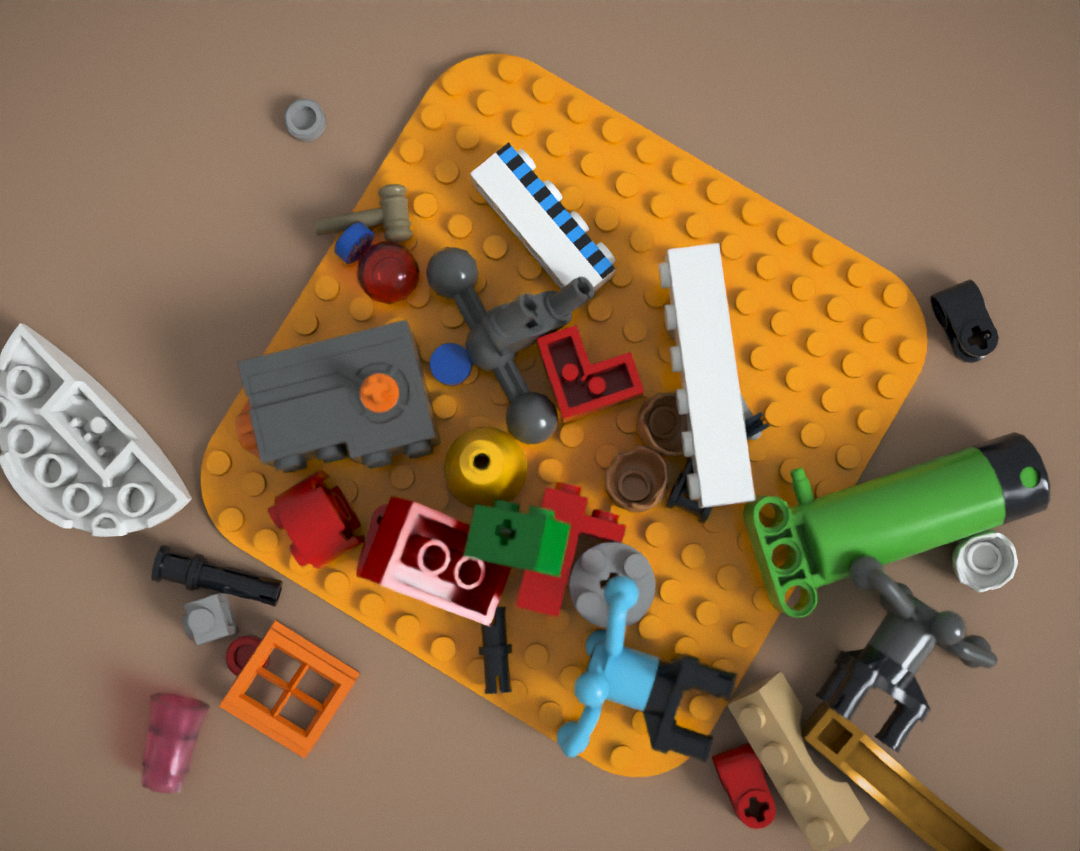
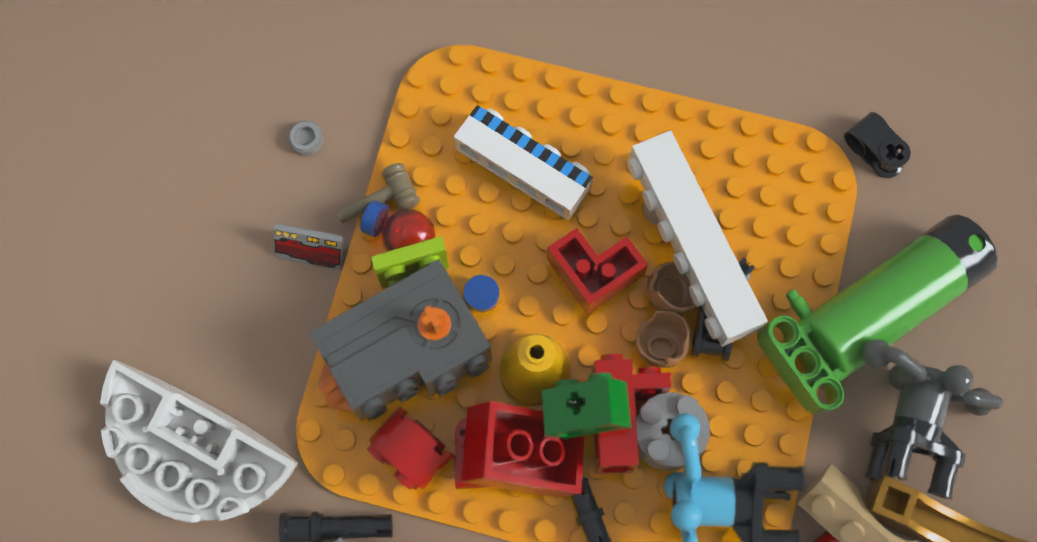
camera: 20 degrees left, 10 degrees down
(273, 252) = (309, 246): none -> slope
(364, 310) = (405, 261): none -> lime plate
(505, 330) = (519, 250): dark grey connector -> none
(984, 560) = (961, 325): white hair -> none

